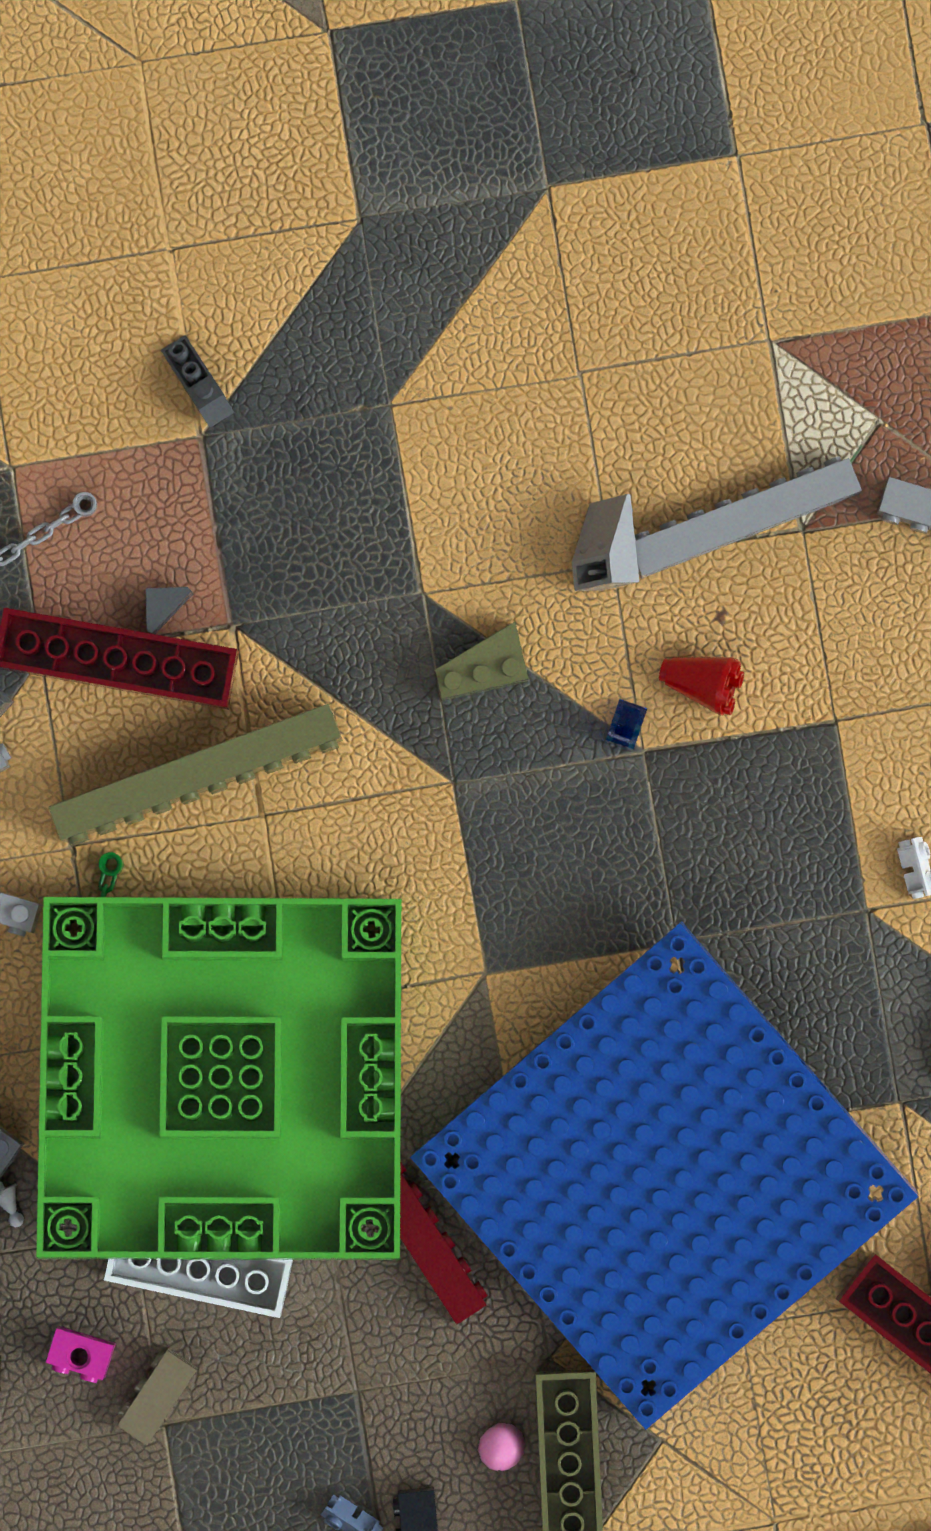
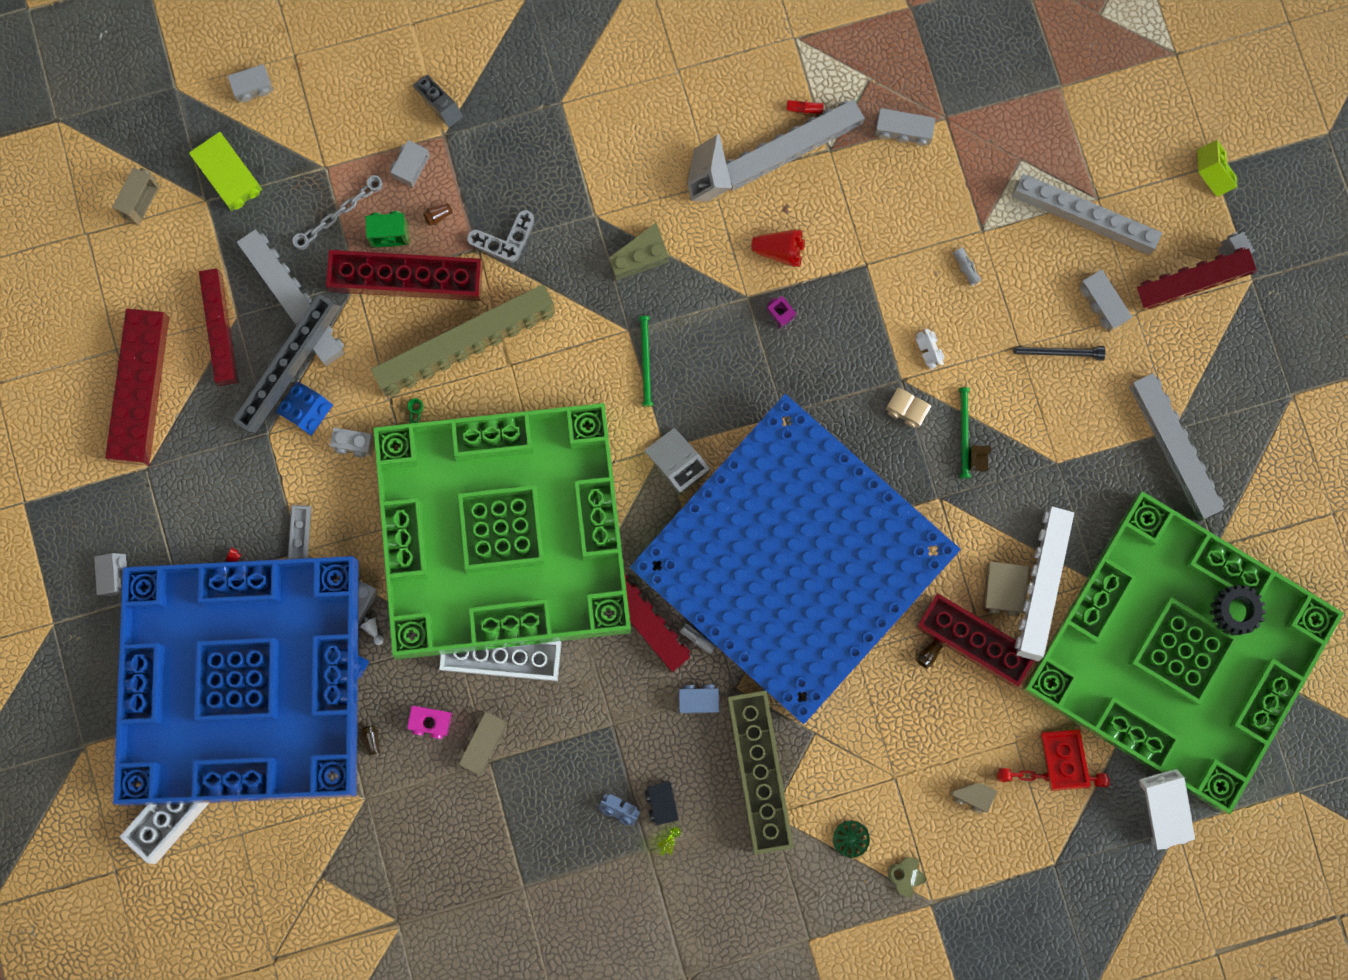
camera: 15 degrees left, 5 degrees down
(96, 584) = (387, 229): none -> green brick
(142, 478) = (410, 163): none -> light grey brick
(163, 604) = (432, 238): dark grey slope -> none
(174, 565) = (437, 214): none -> reddish brown cone
(285, 623) = (509, 244): none -> light grey beam
(473, 835) = (645, 361): none -> green bar
(491, 1371) = (698, 700): none -> sand blue brick
(501, 1276) = (698, 638): none -> light grey axle
(501, 1447) = (711, 749): bright pink hair -> none
(503, 998) = (677, 461): none -> light grey slope
(625, 725) = (733, 282): clear blue slope -> none
(703, 785) = (788, 312): none -> magenta brick
(771, 457) = (805, 107): none -> red axle
(850, 1345) = (929, 654): none -> dark brown cone
(870, 957) = (908, 408): none -> tan brick

